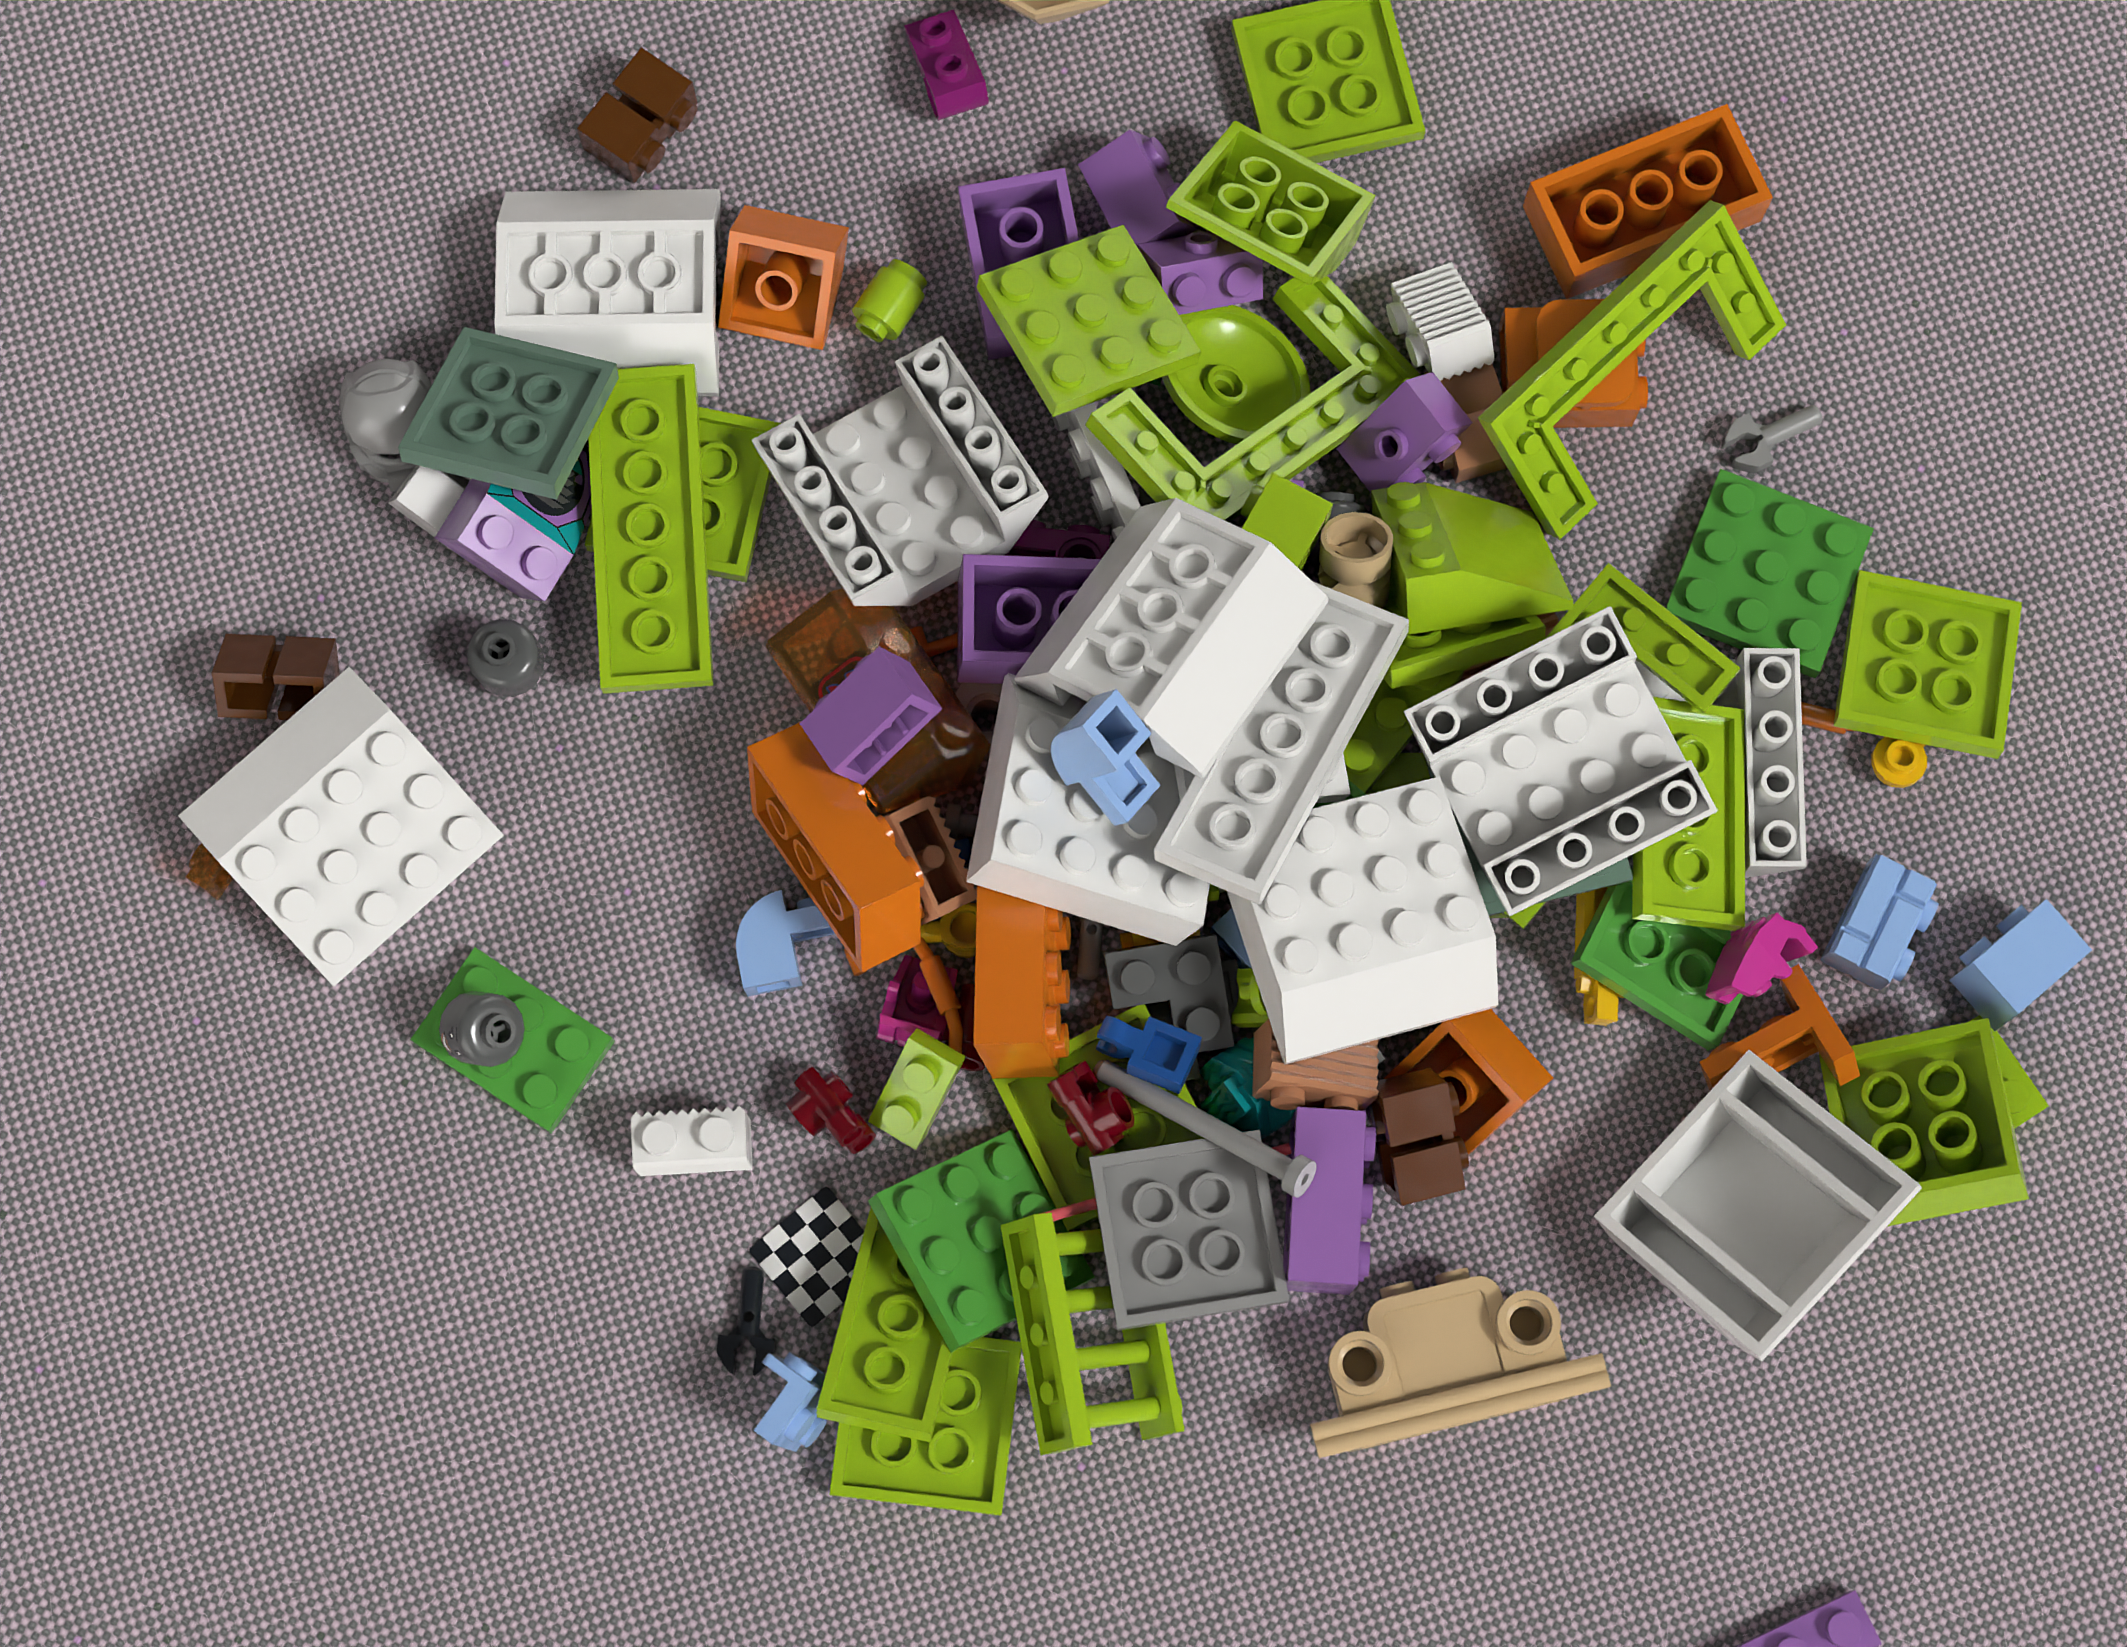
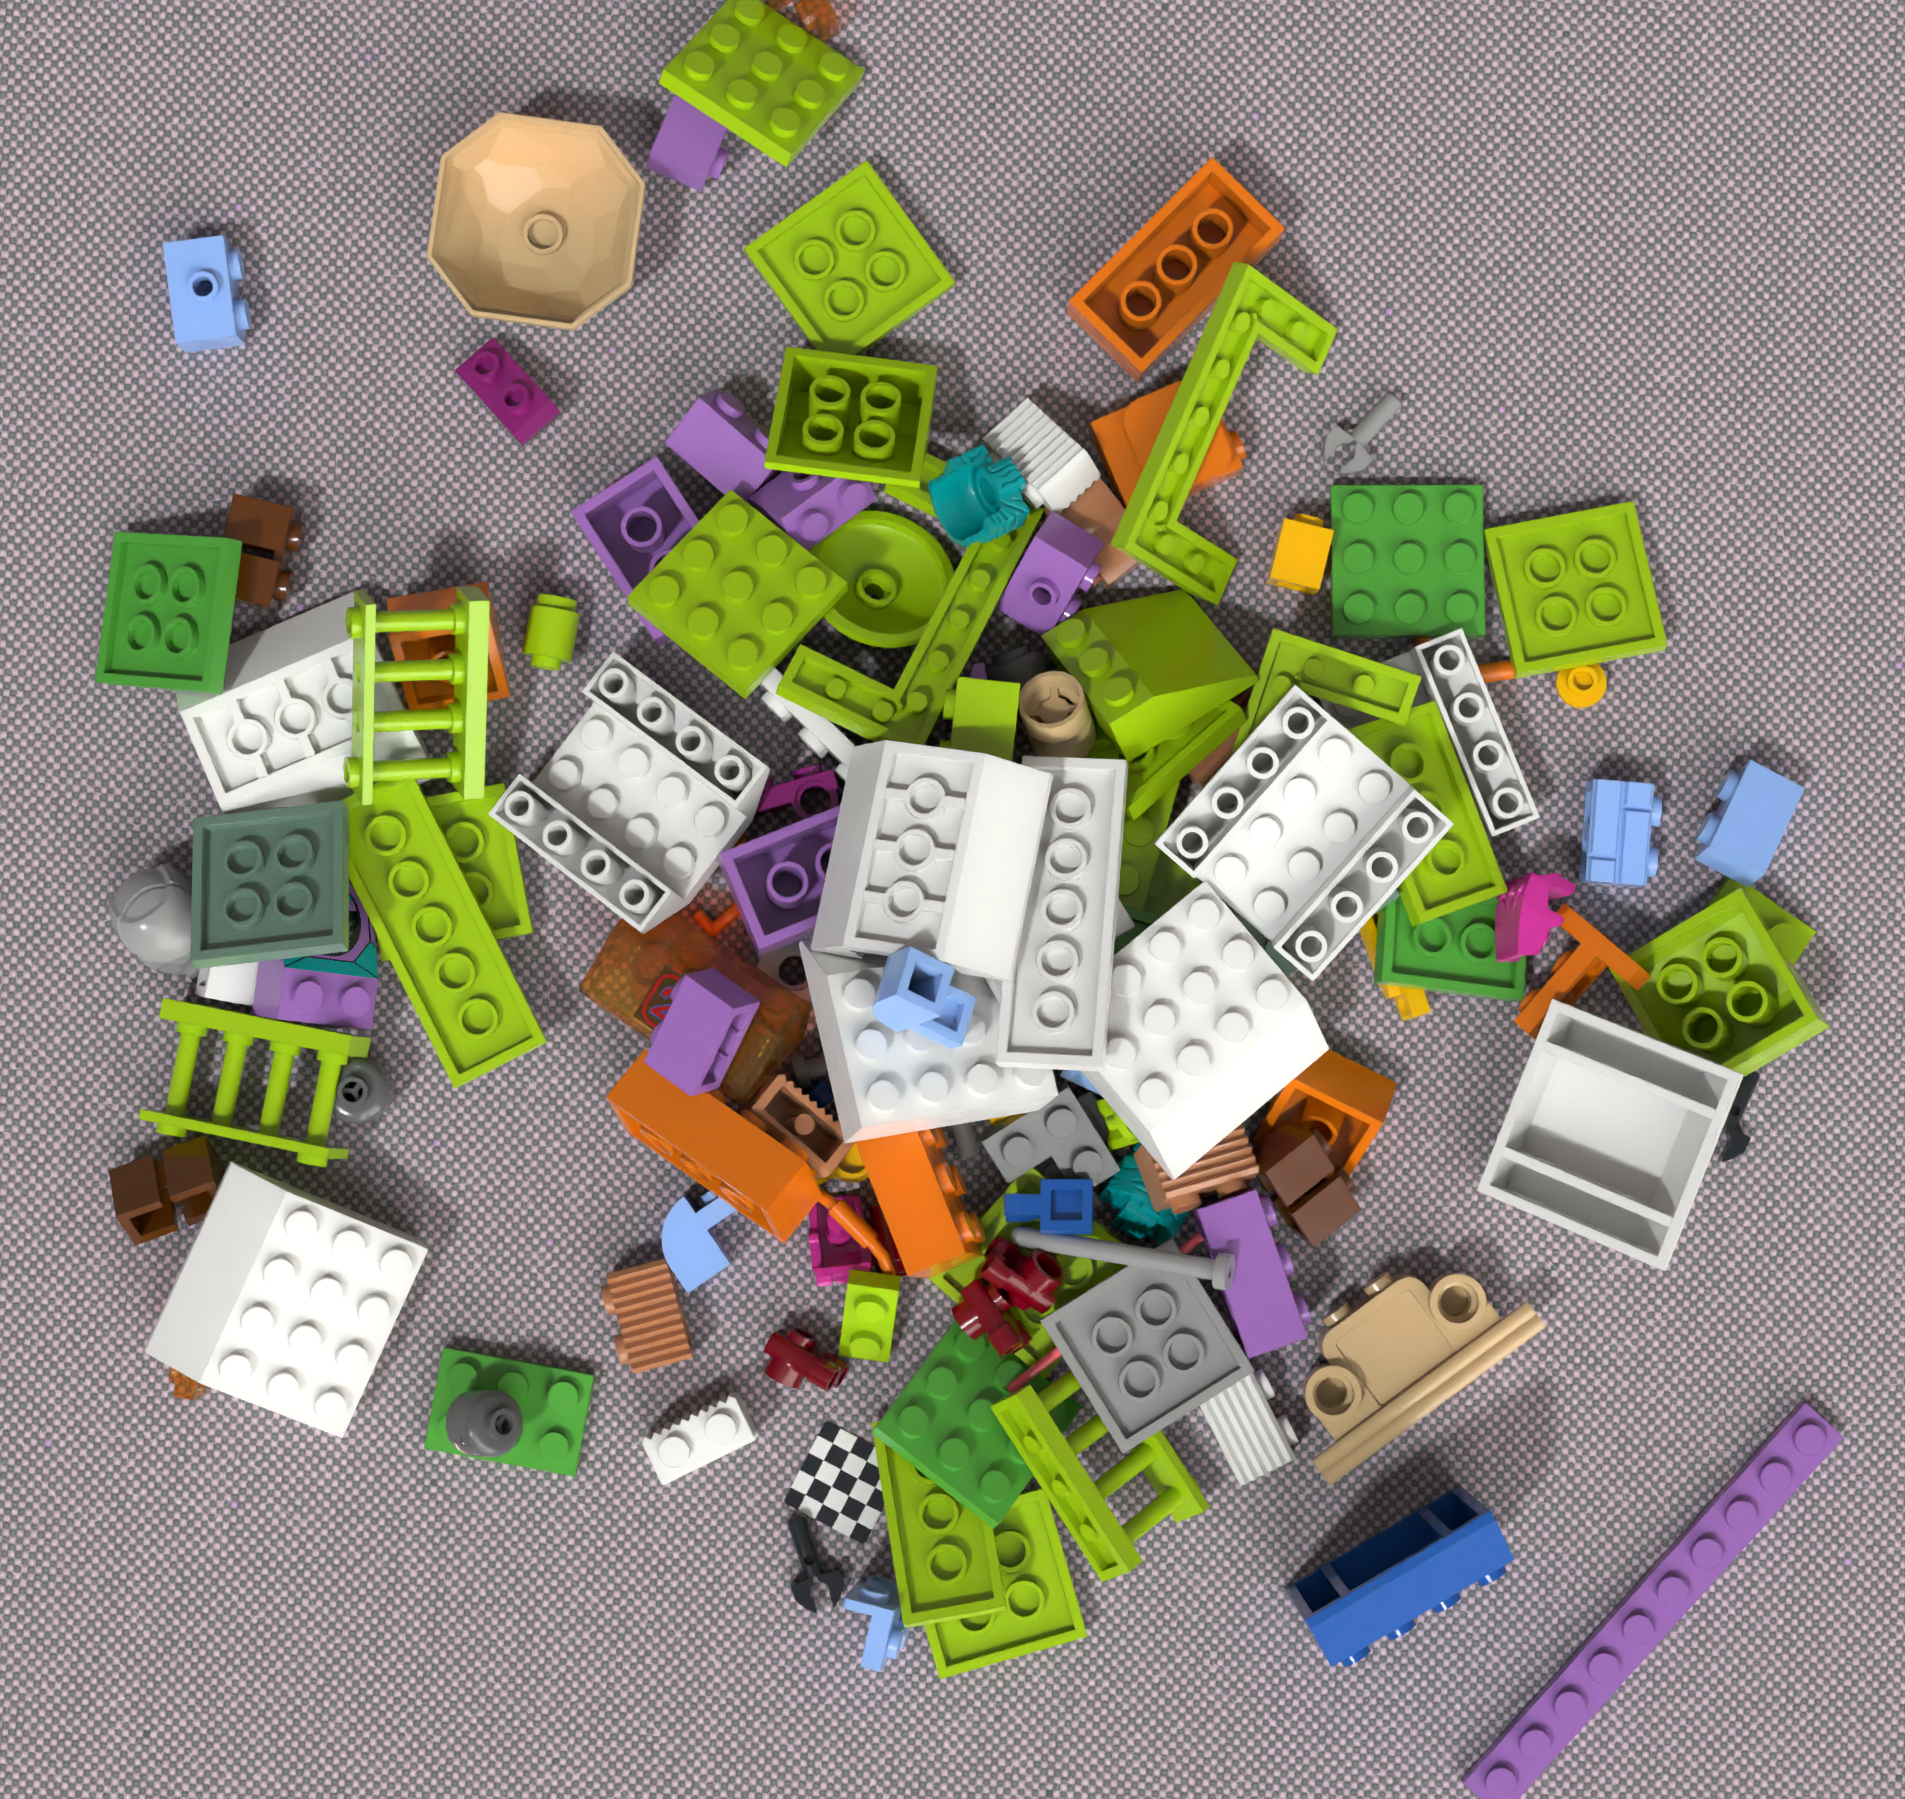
camera: 30 degrees left, 10 degrees up
(415, 551) = (286, 1042): none -> lime fence
(529, 131) = (168, 612): none -> bright green plate
(693, 999) = (648, 1315): none -> nougat brick
(790, 287) = (464, 718): none -> lime fence
(1037, 1132) = (987, 1311): none -> dark red plate
(1257, 1364) = (1248, 1428): none -> white brick
(1357, 1575) = (1400, 1575): none -> blue slope
(1365, 329) = (979, 497): none -> teal hair
(1662, 521) = (1300, 554): none -> yellow brick
(1887, 1261) = (1736, 1140): none -> black bar

